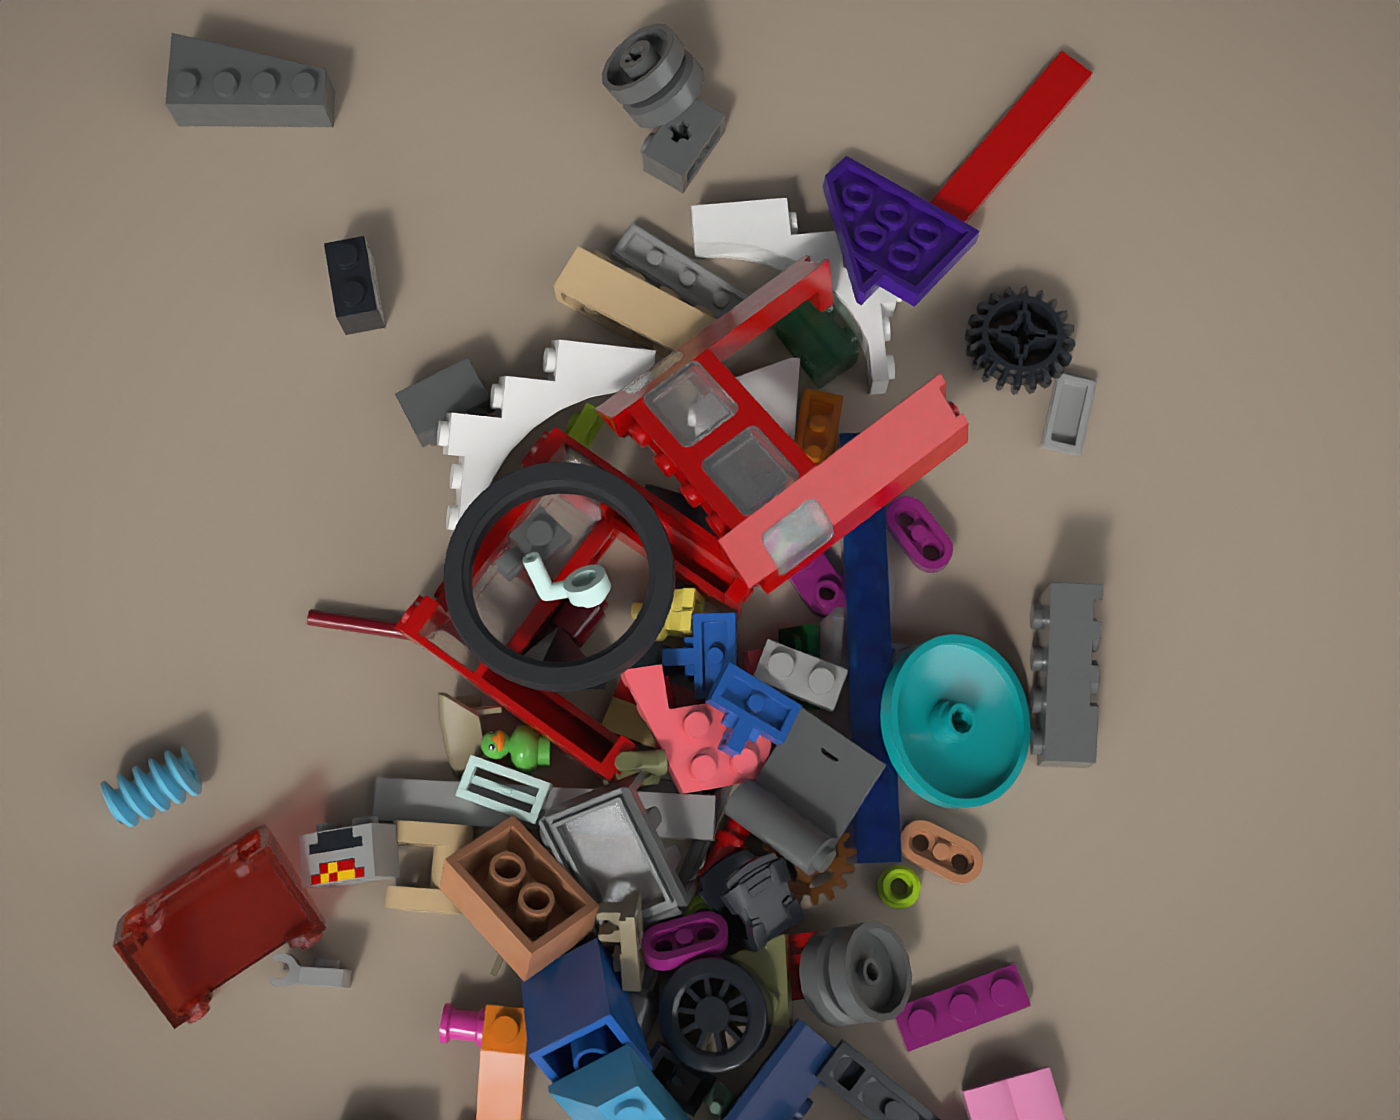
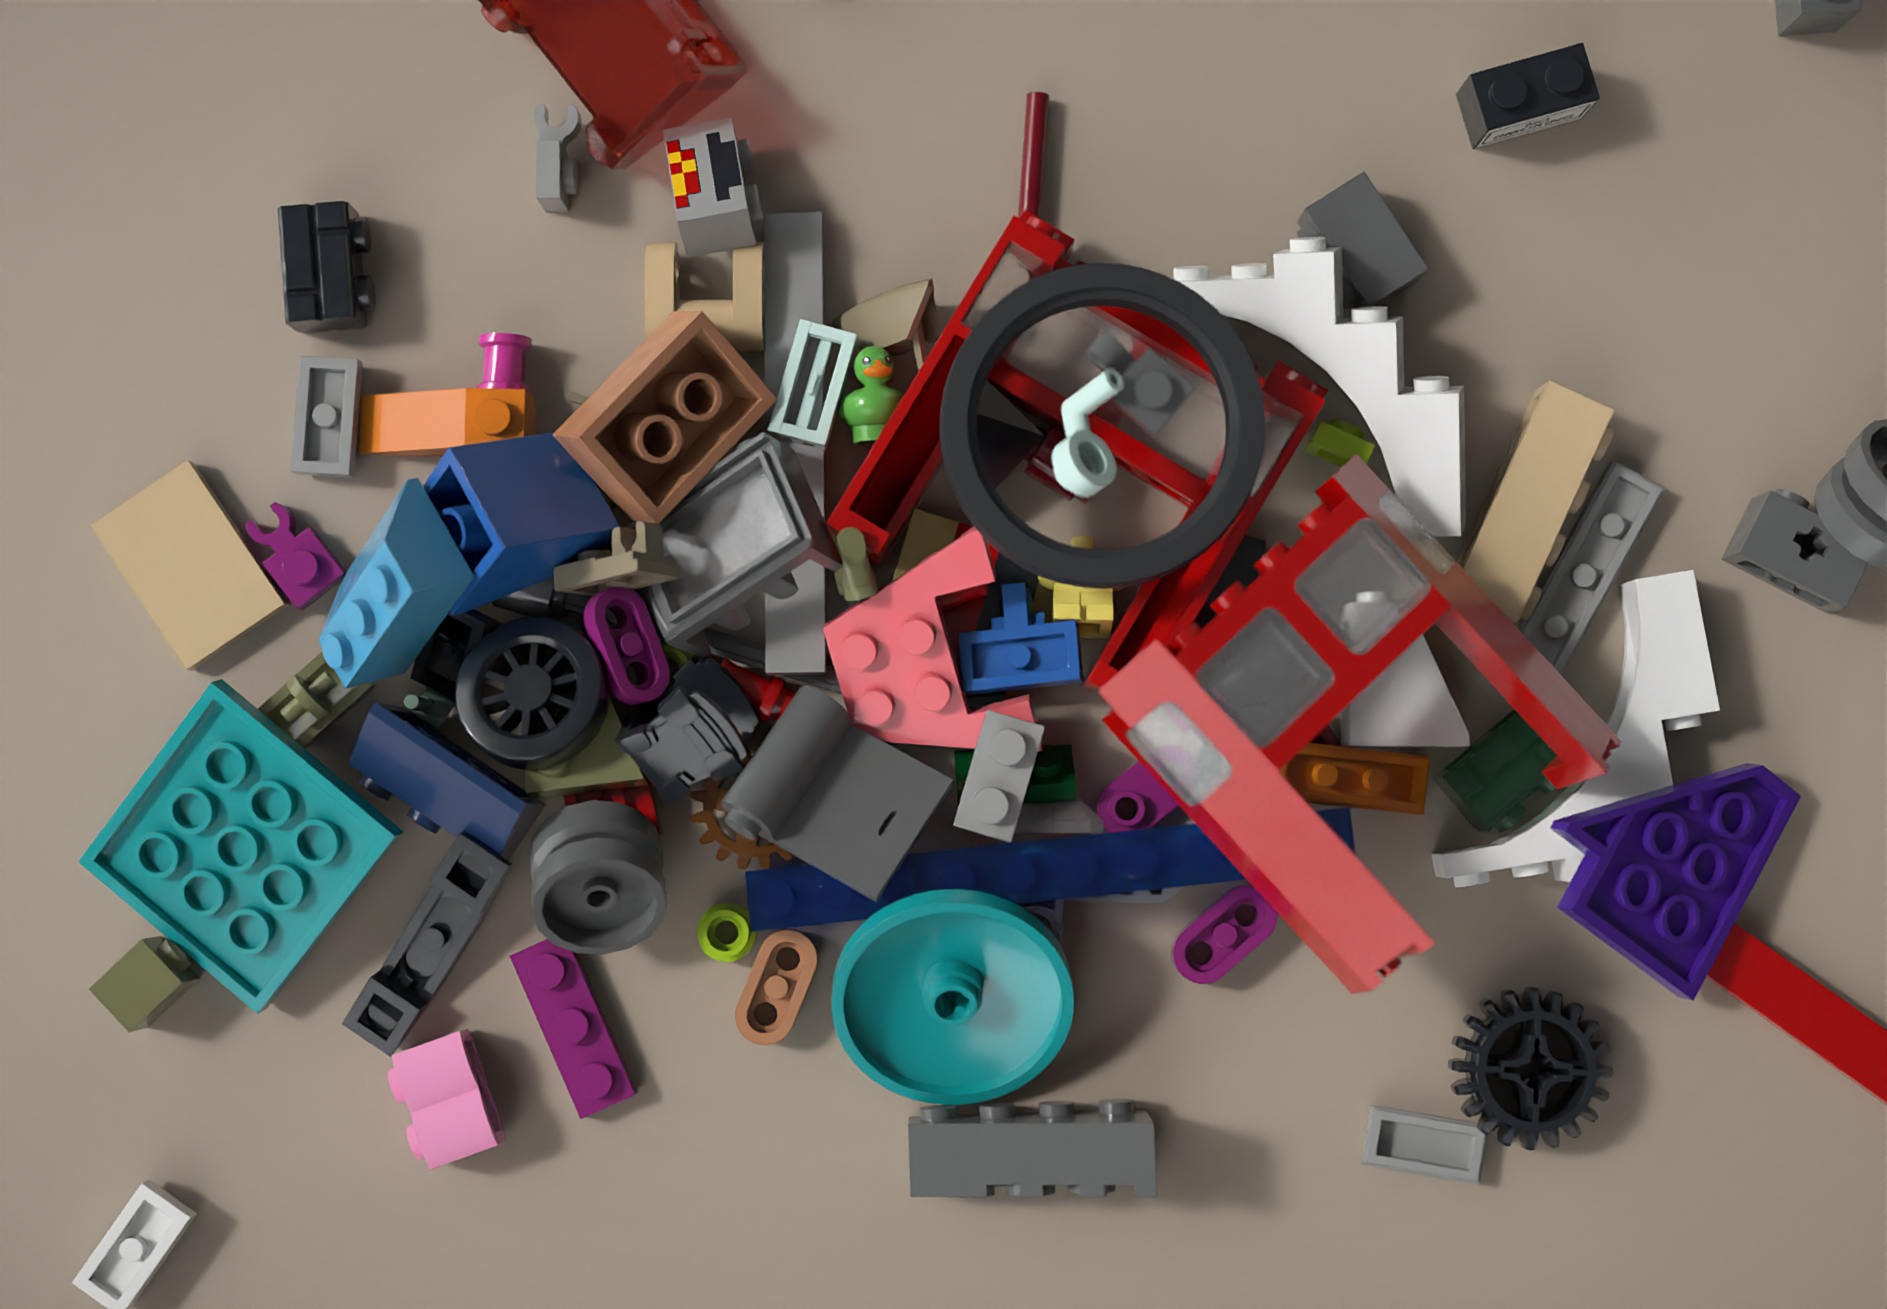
camera: 85 degrees right, 10 degrees up
(750, 710) = (941, 708): blue hinge -> none

